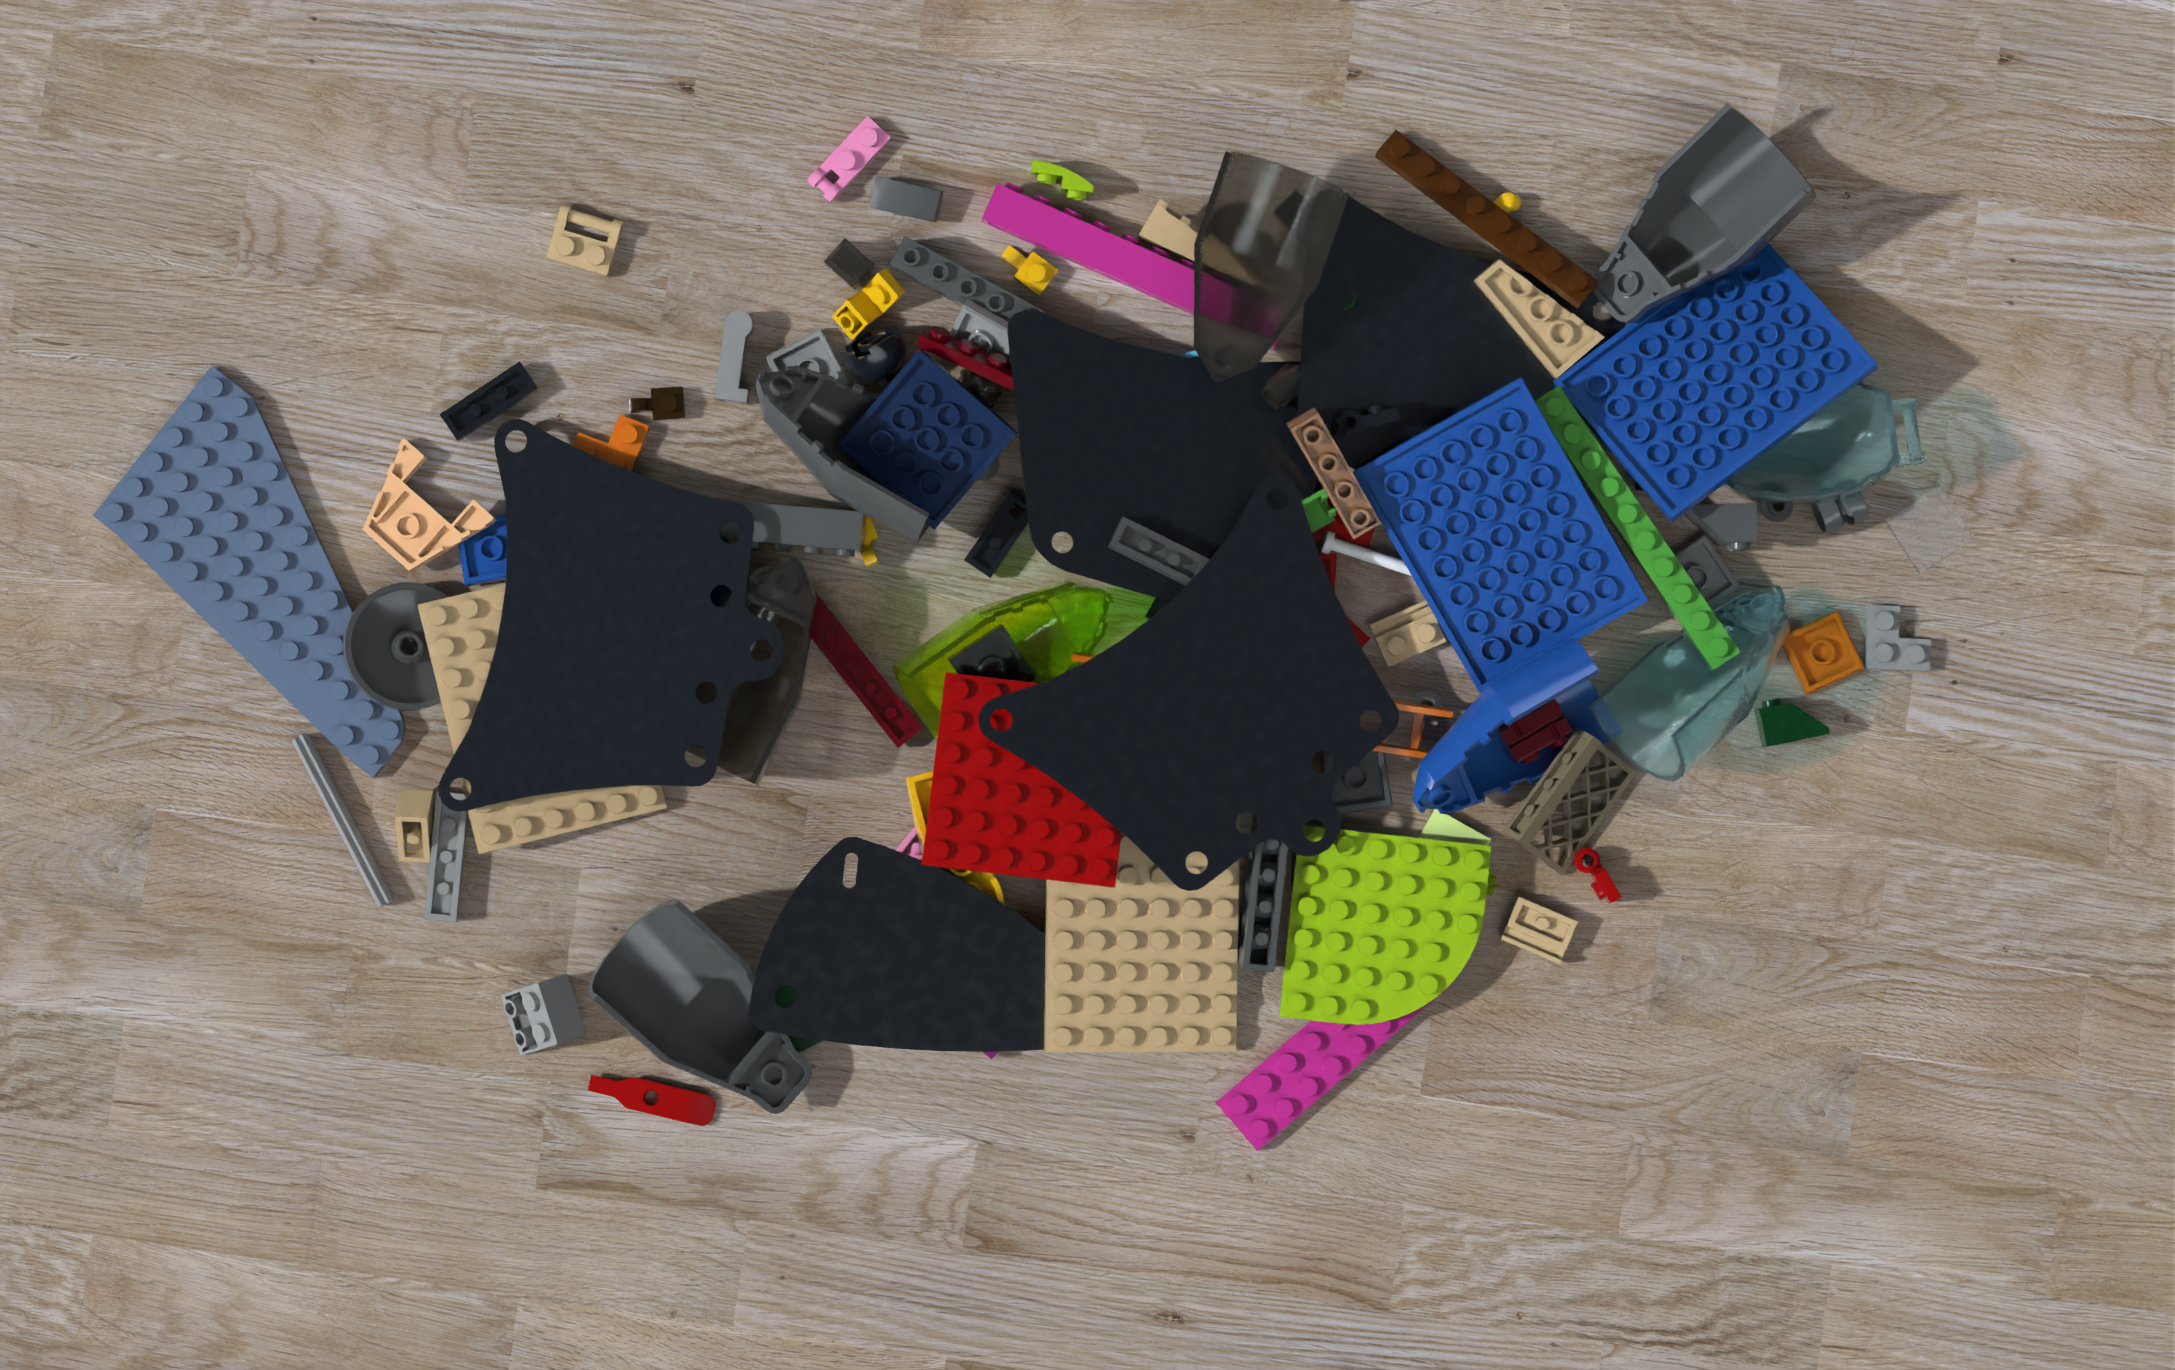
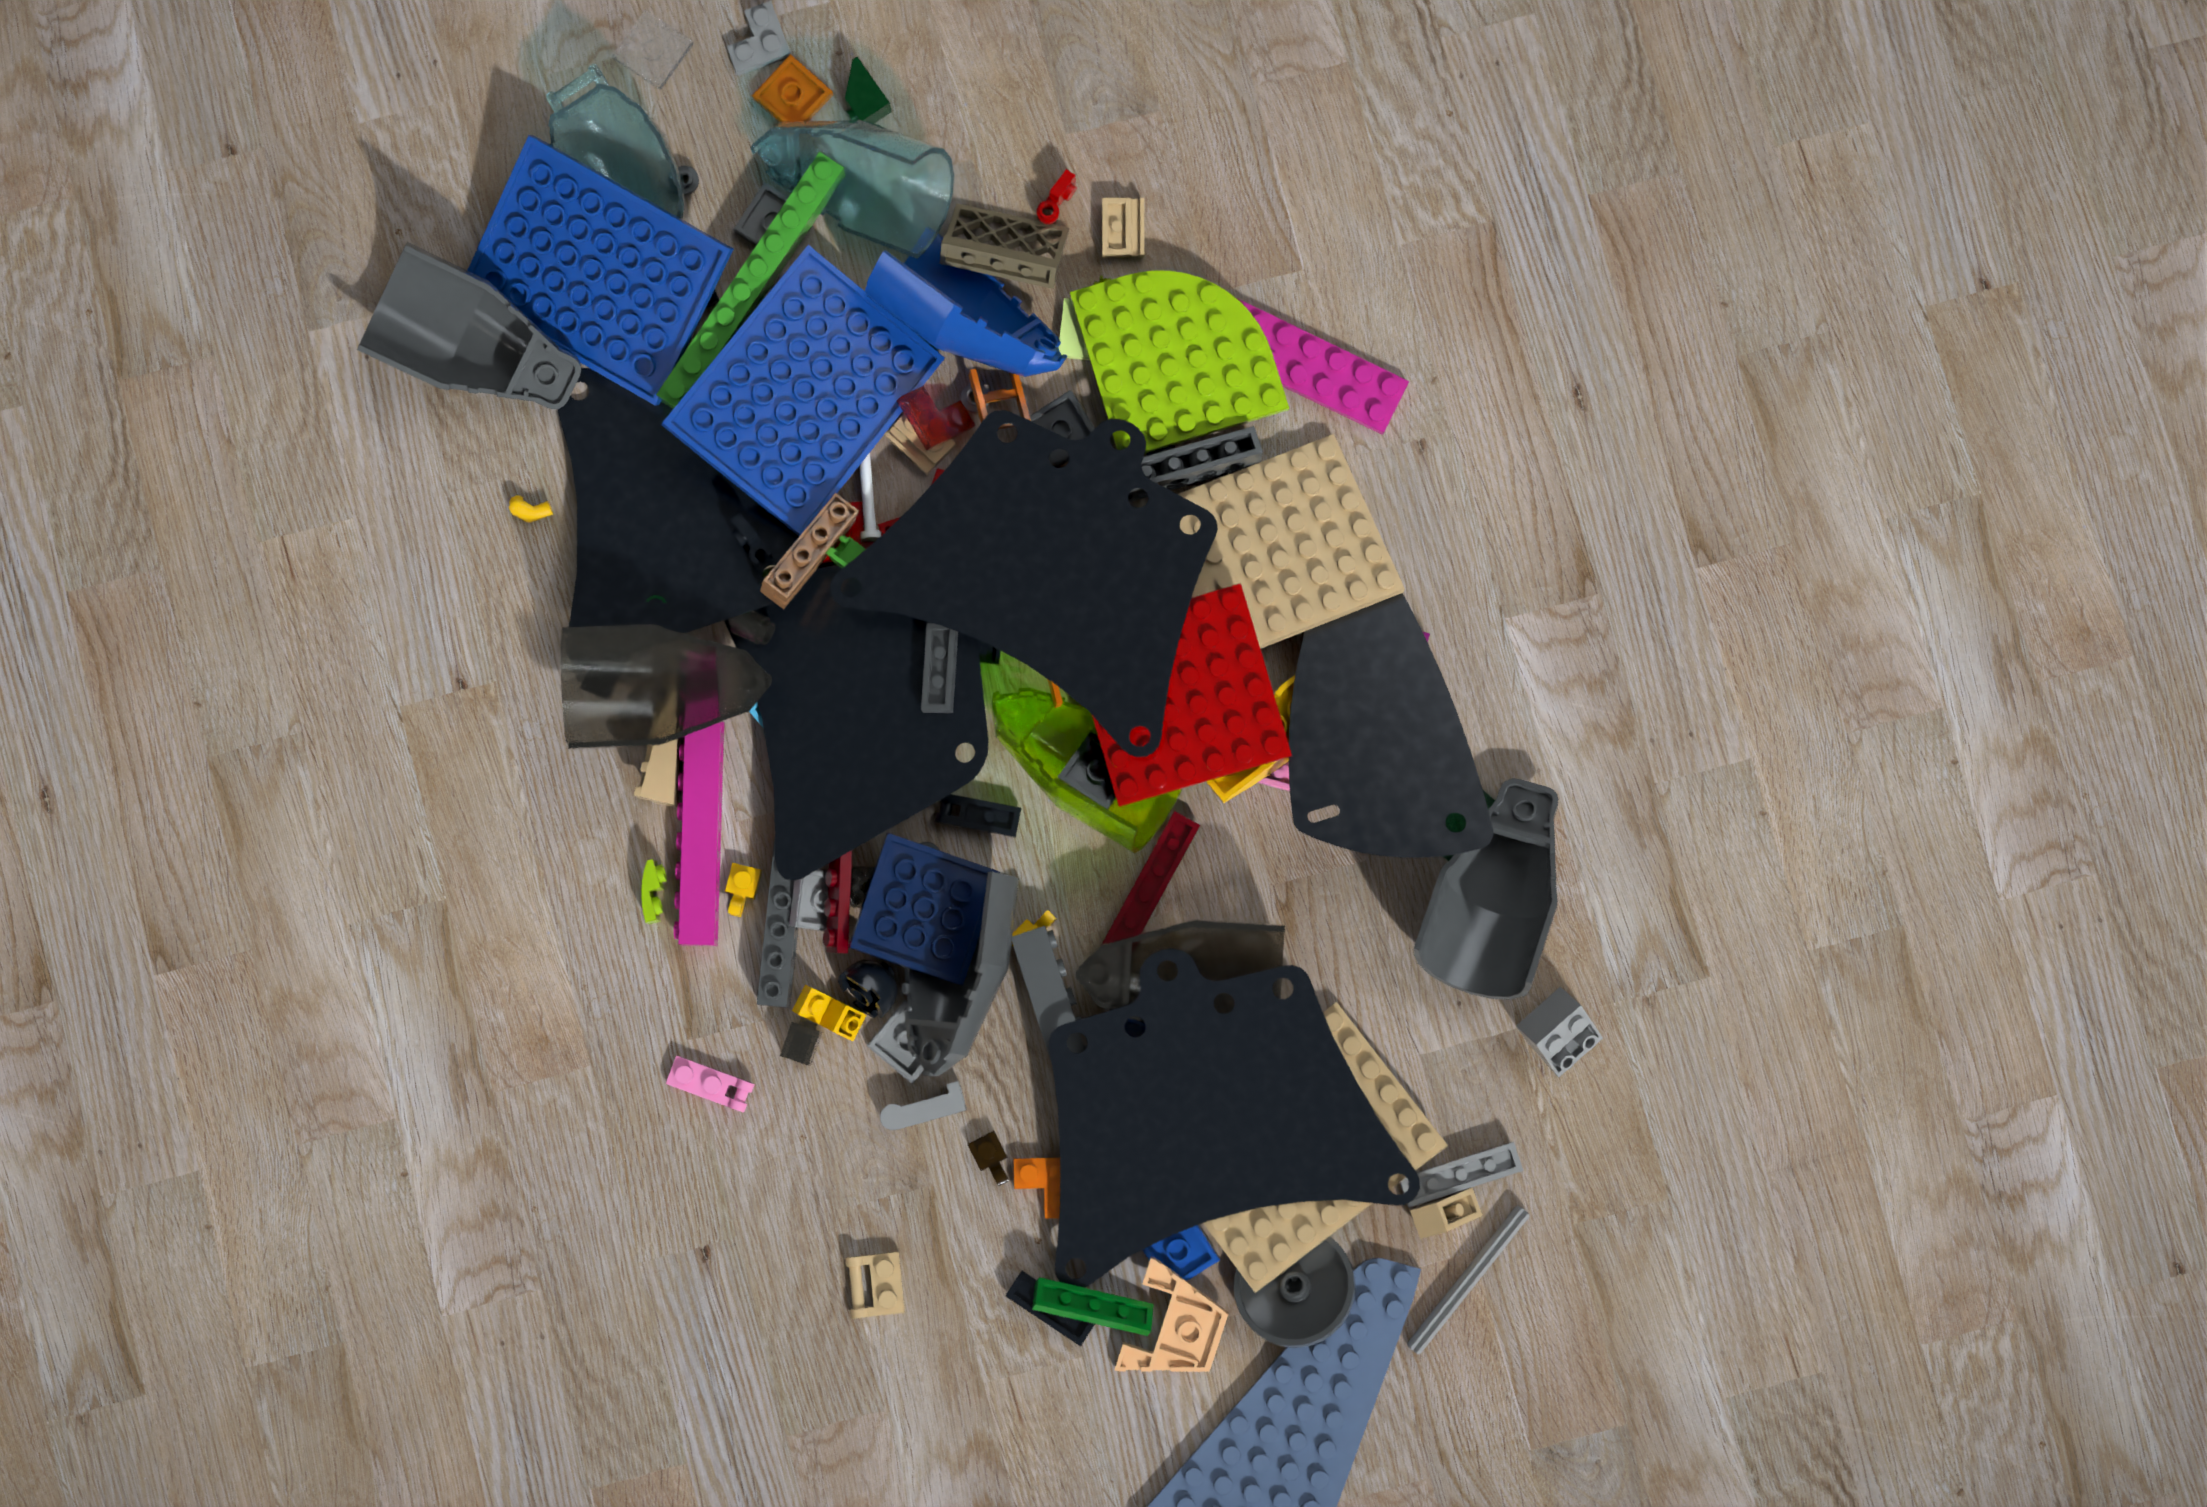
camera: 110 degrees left, 5 degrees down
(472, 442) = (1093, 1306): none -> green plate
(672, 1101) = (1584, 890): red piece -> none
(906, 199) = (724, 1018): dark grey slope -> none
(1416, 648) = (931, 424): none -> clear red plate
(1487, 219) = (539, 517): reddish brown plate -> none
(1534, 732) = (954, 285): dark red brick -> none
(1542, 323) = (610, 433): tan wing -> none
(1727, 524) = (716, 207): dark grey slope -> none
(1834, 514) = (674, 127): dark grey wheel -> none

